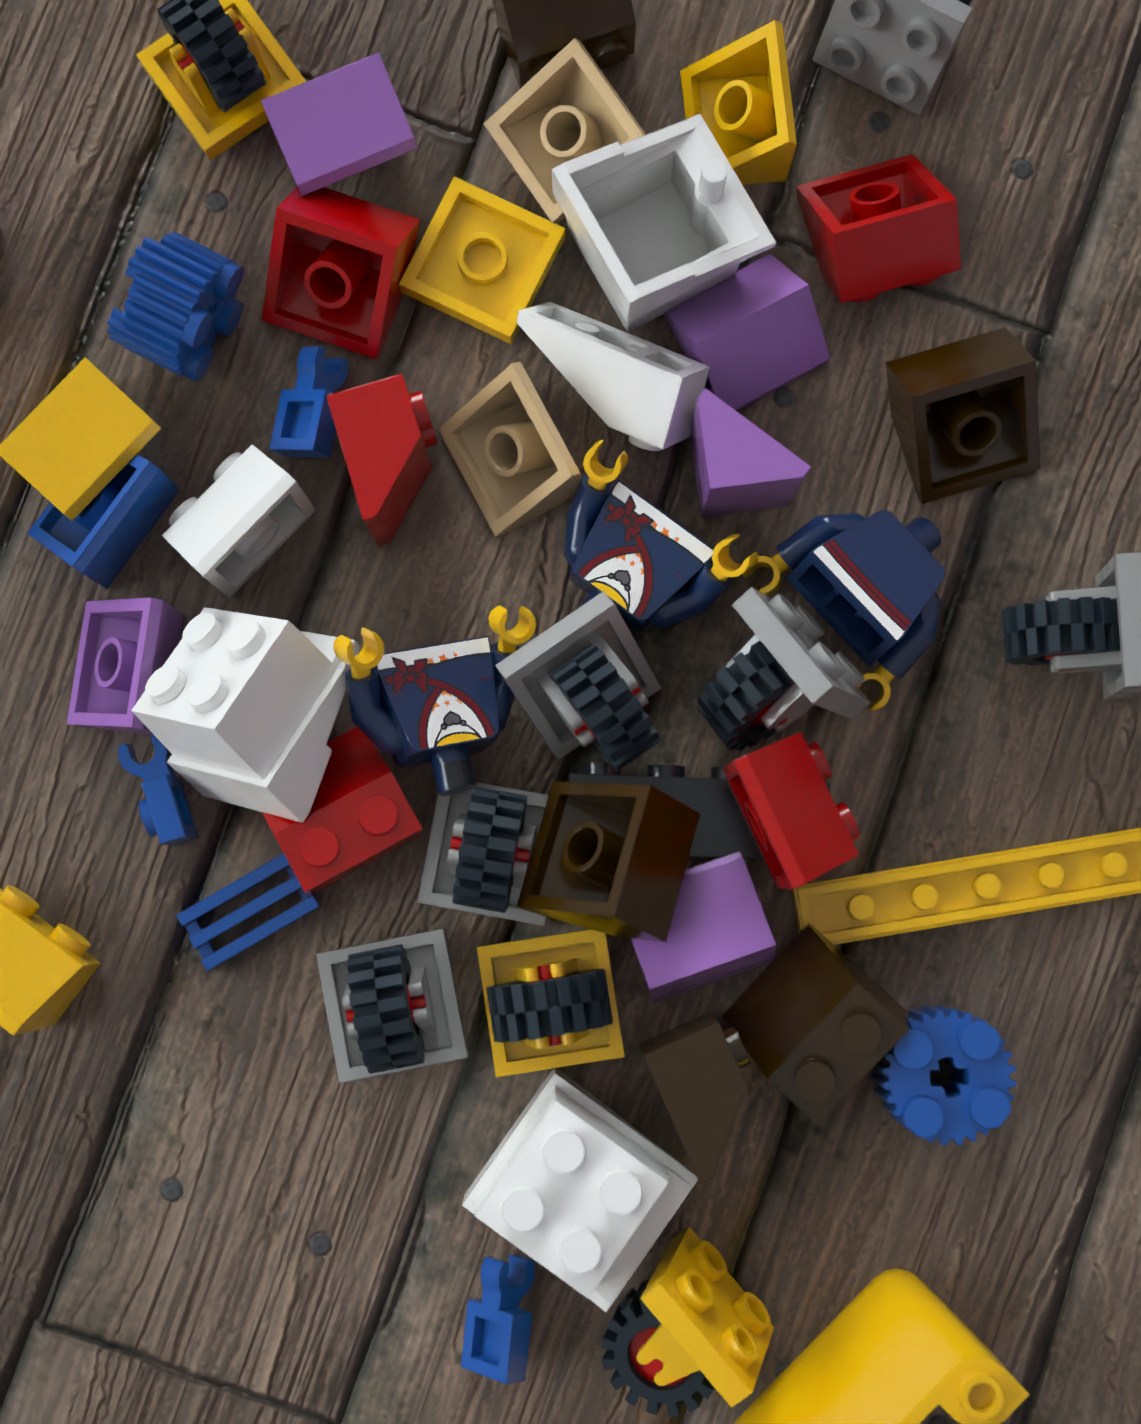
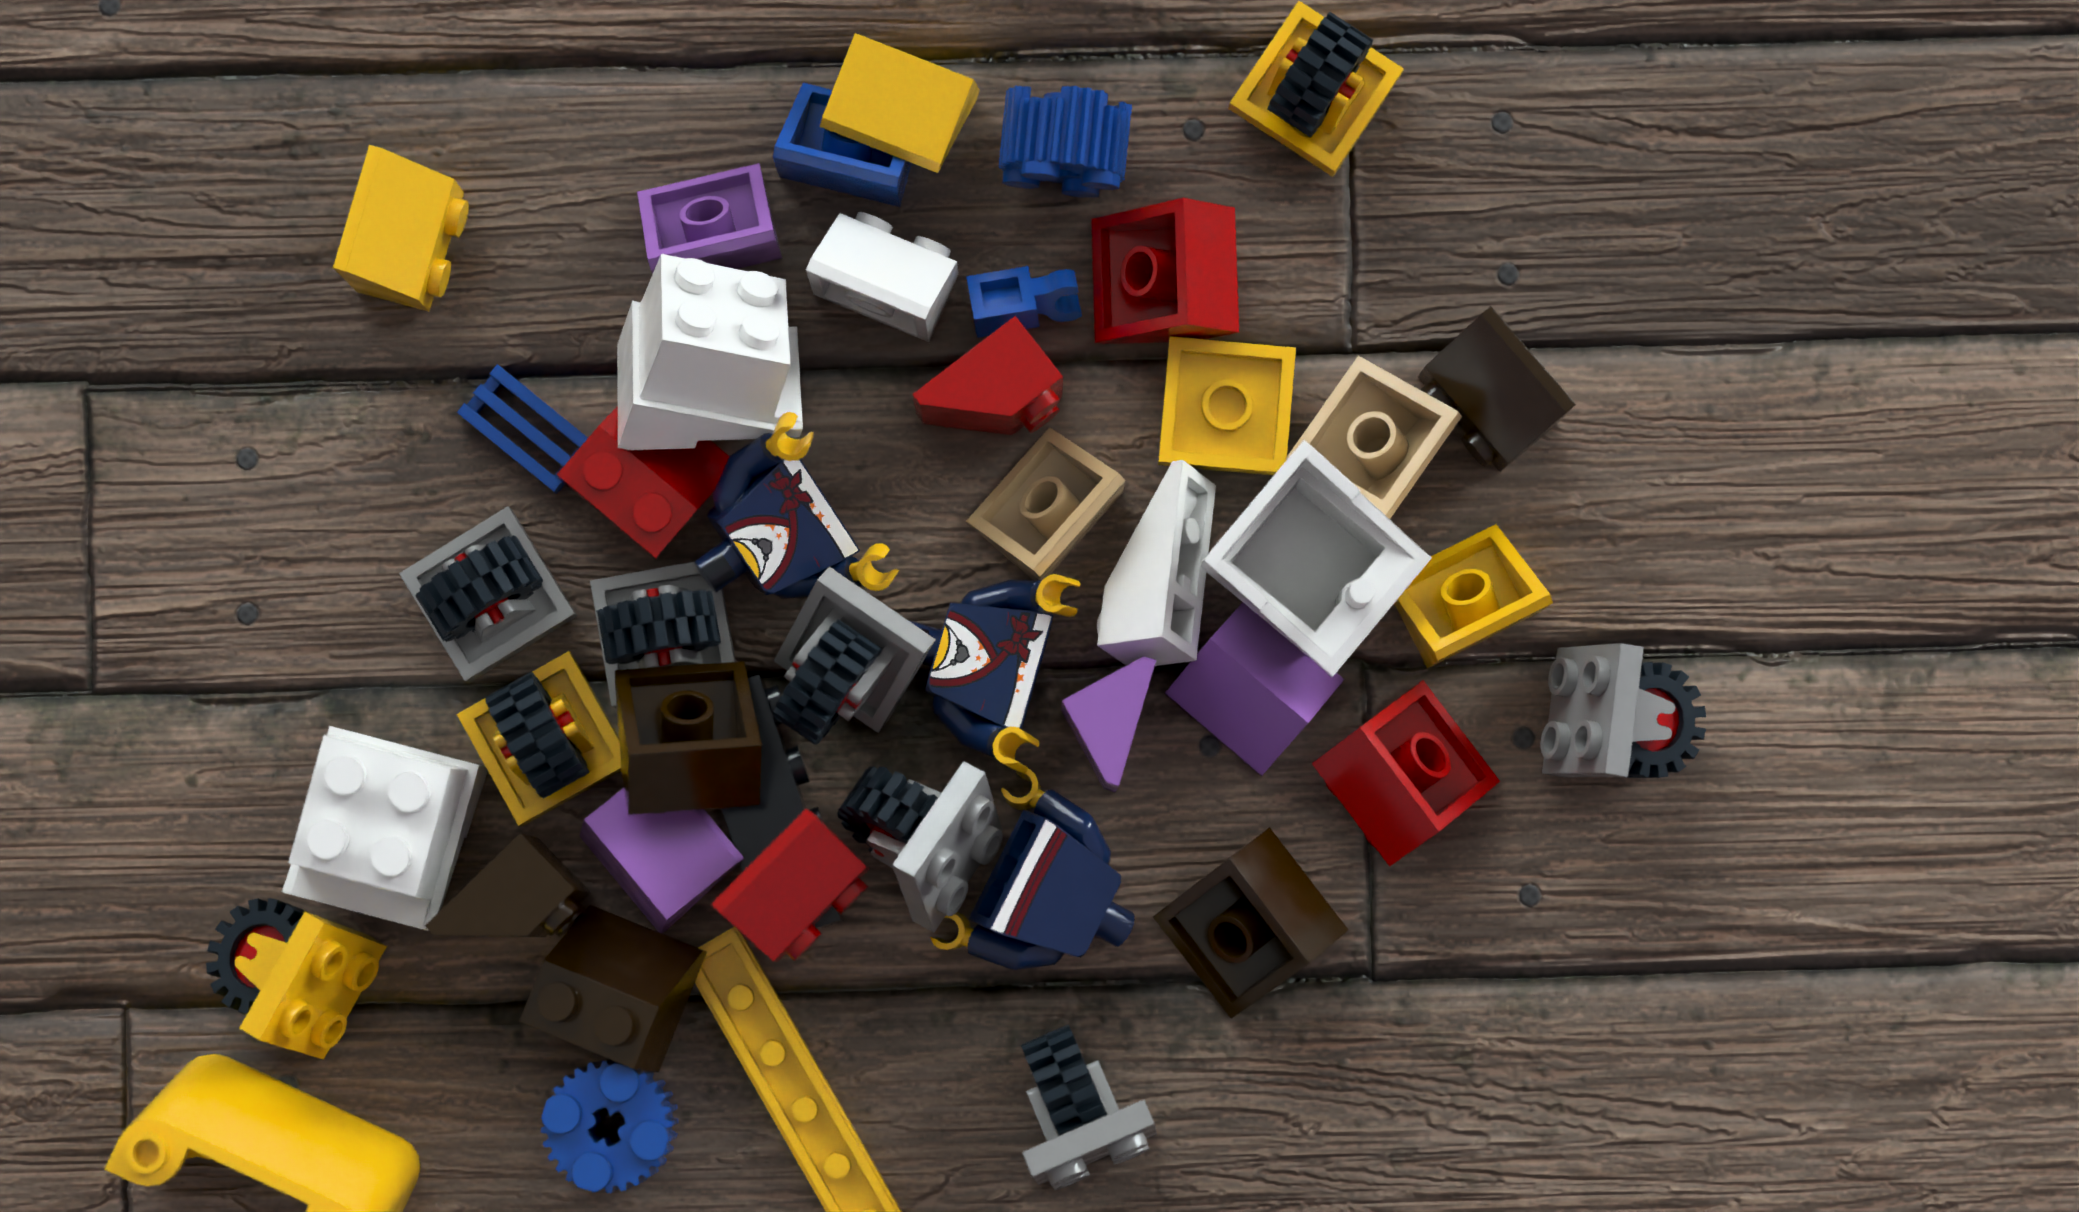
camera: 65 degrees right, 0 degrees up
(166, 806) = (593, 315): blue plate -> none
(339, 124) = (1292, 224): medium lavender slope -> none
(495, 1326) = (232, 800): blue plate -> none

